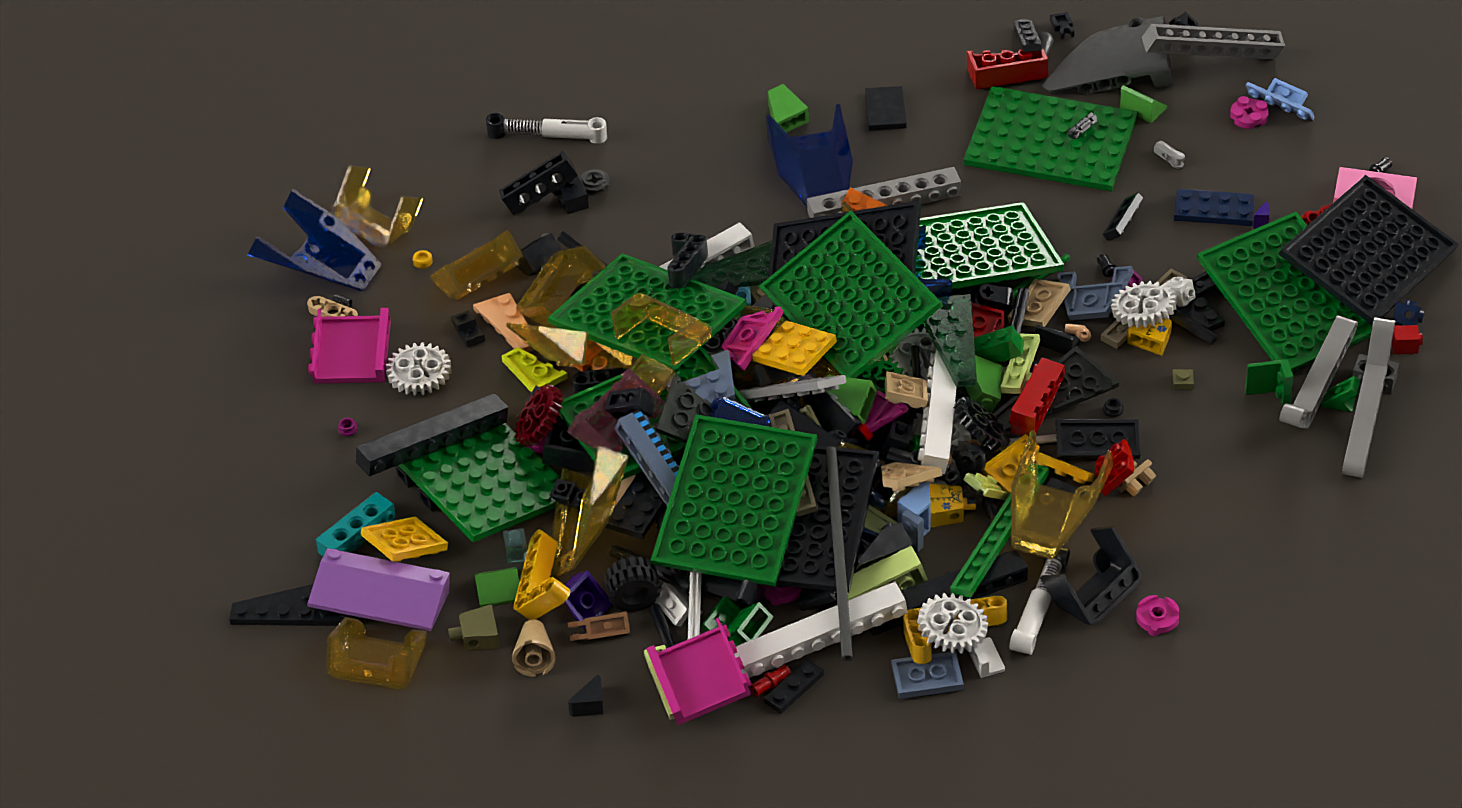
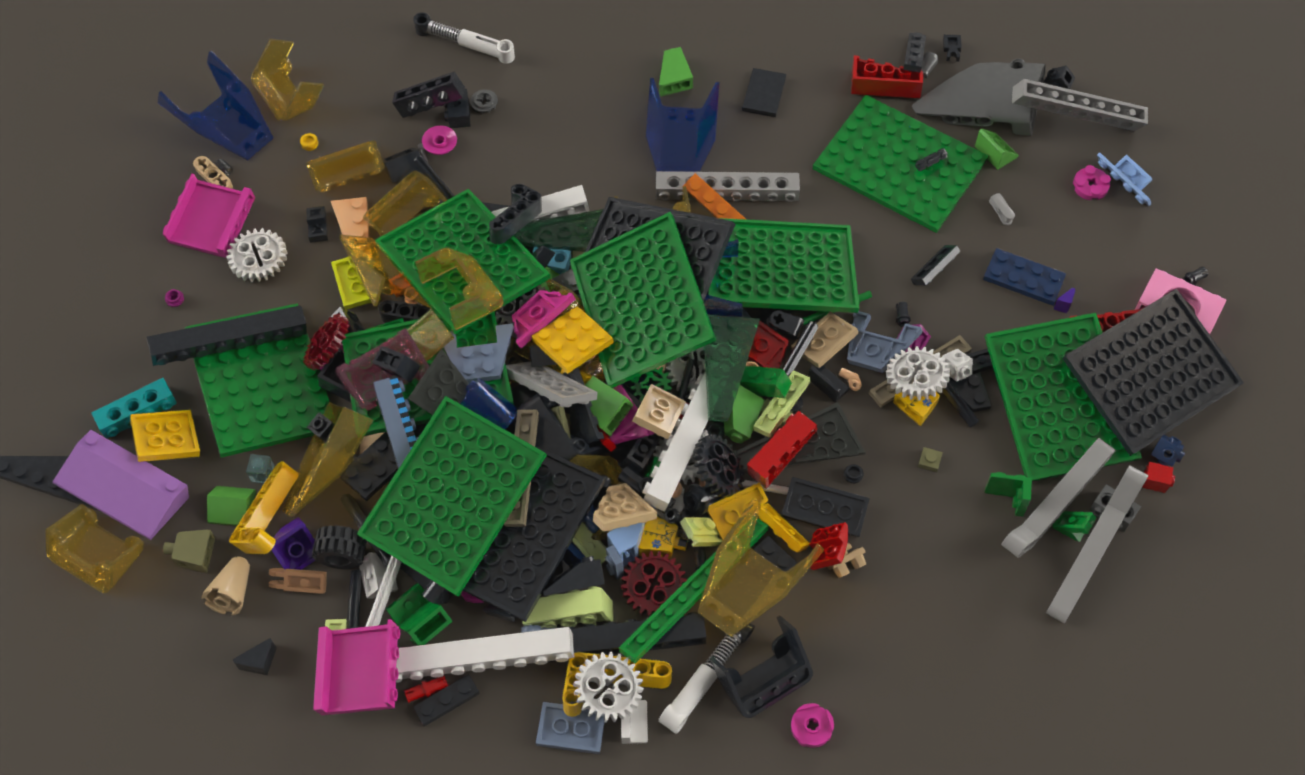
camera: 15 degrees right, 15 degrees up
(564, 221) = (437, 135): none -> dark pink dish
(839, 556) = (526, 584): dark grey piece -> none
(937, 539) = (636, 577): none -> dark red gear

